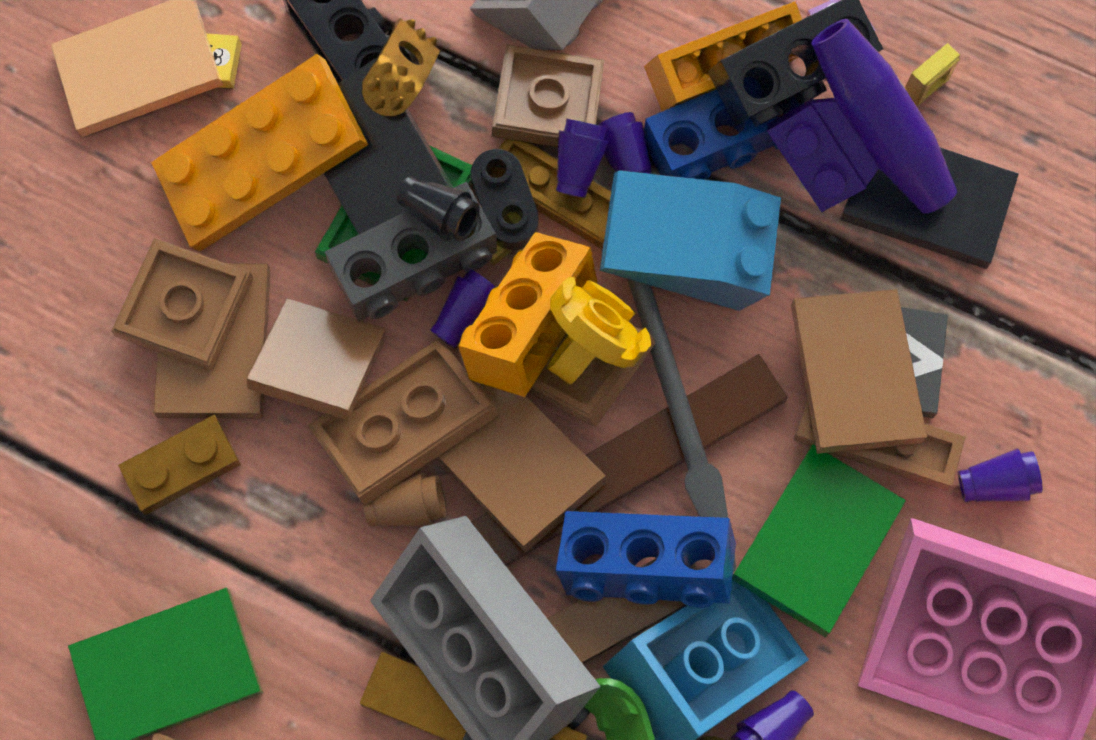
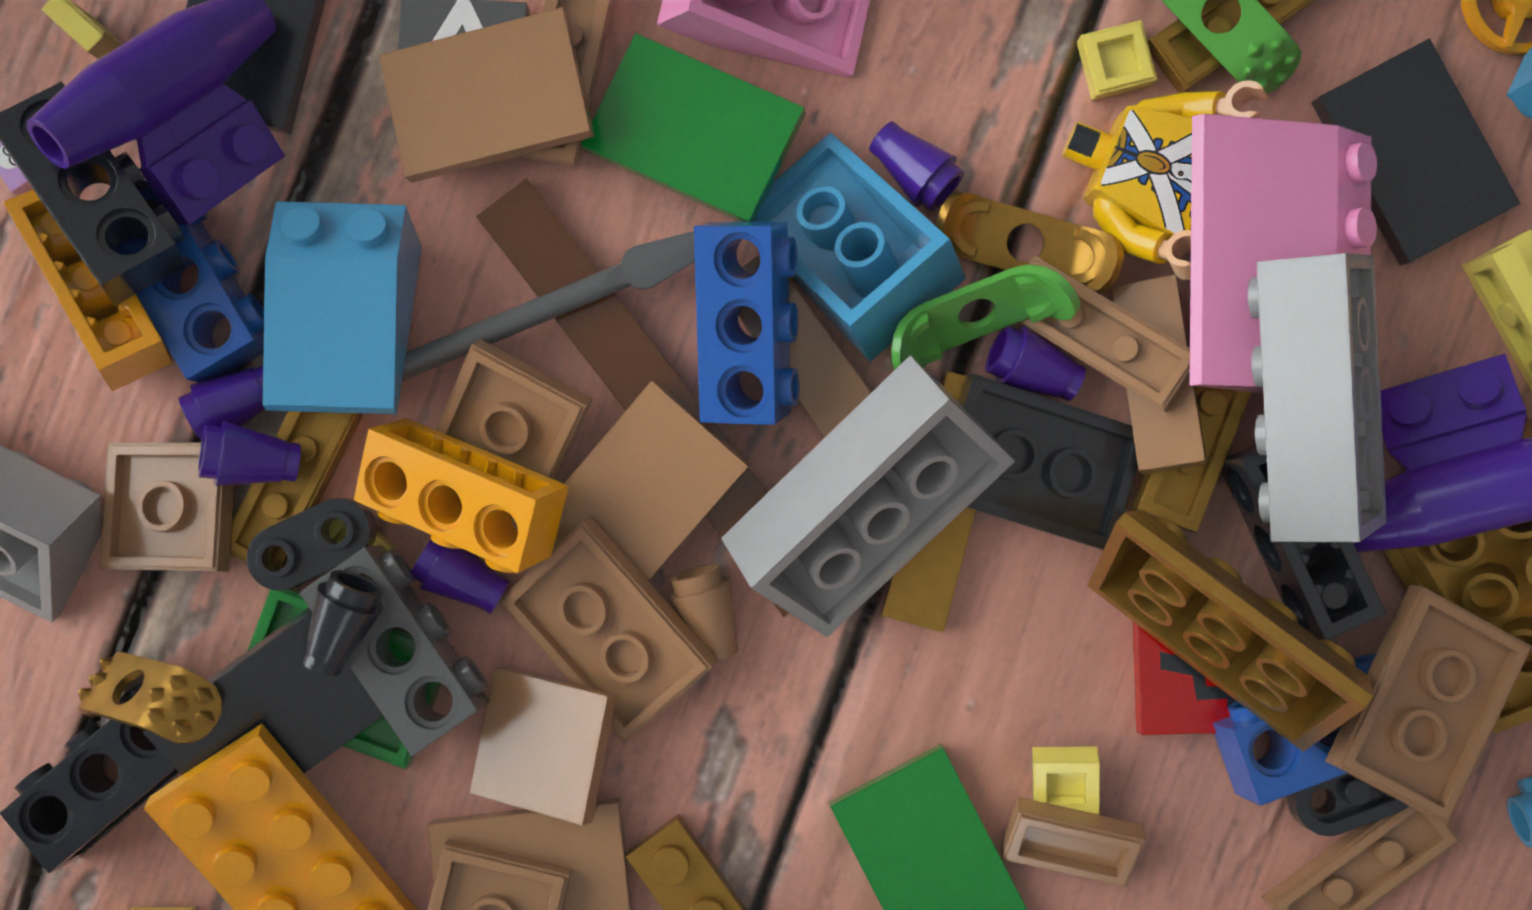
camera: 90 degrees left, 15 degrees up
(595, 328) = (479, 409): yellow tile -> none

